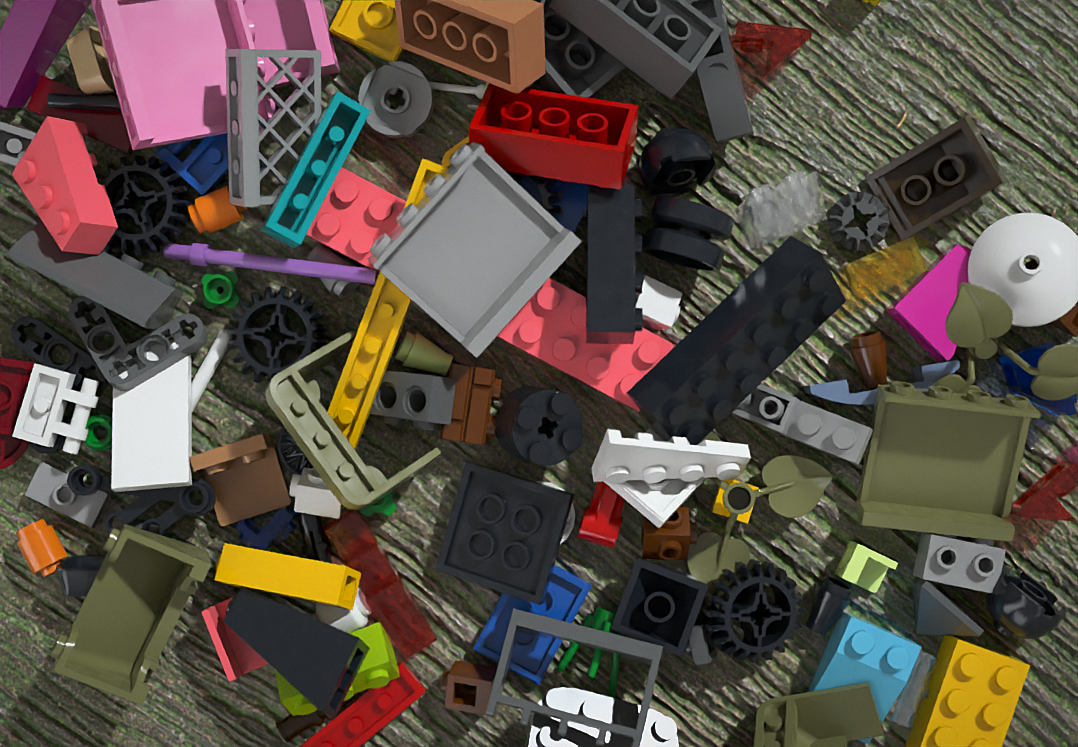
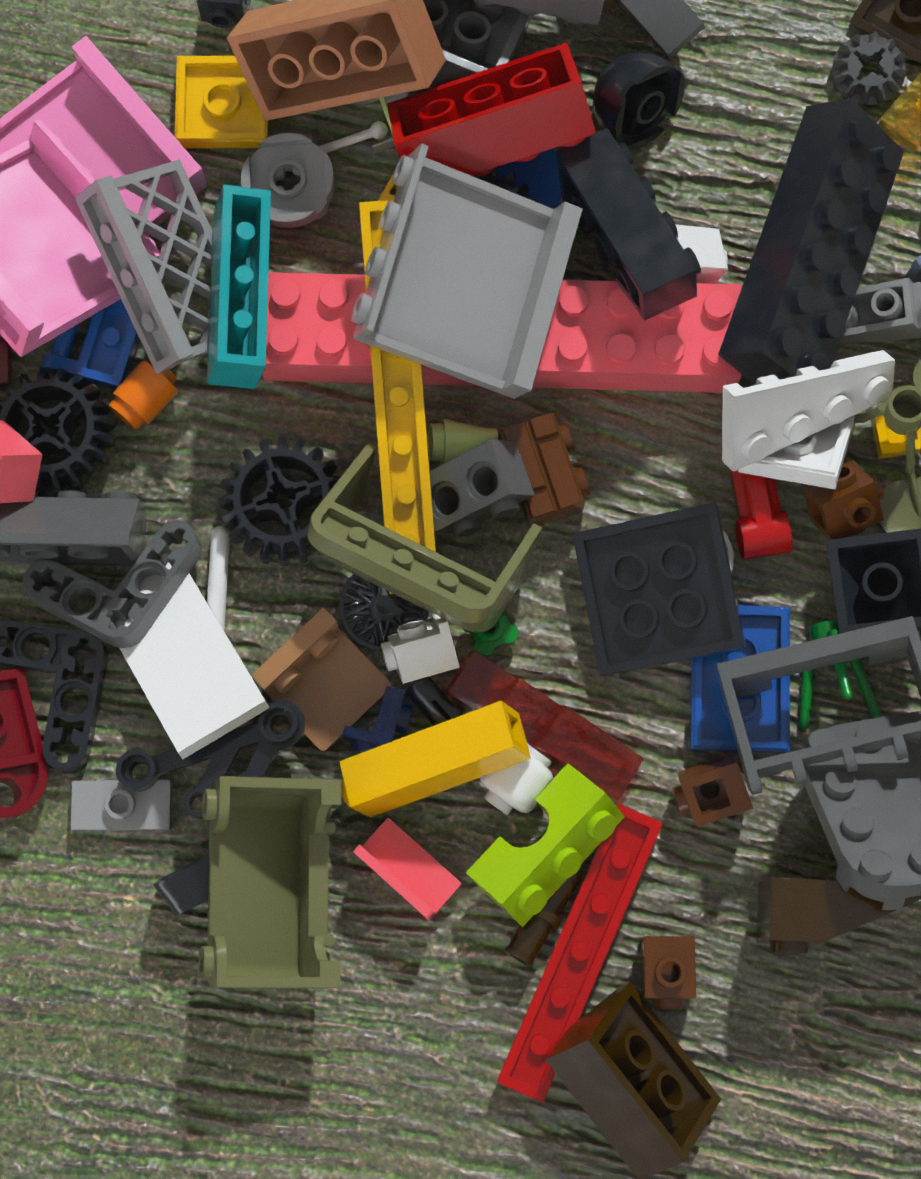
camera: 25 degrees left, 10 degrees down
(41, 547) = (121, 881): orange brick -> none
(45, 406) = (49, 704): white plate -> none
(92, 440) = (116, 704): green plate -> none
(204, 255) = (151, 452): medium lavender bar -> none
(213, 282) = (177, 478): green plate -> none
(302, 649) = (489, 829): black slope -> none
(335, 287) = (313, 399): light grey cone -> none
(541, 408) = (636, 448): black brick -> none
(687, 233) = (692, 160): black wheel -> none
(781, 211) = (778, 89): clear slope -> none

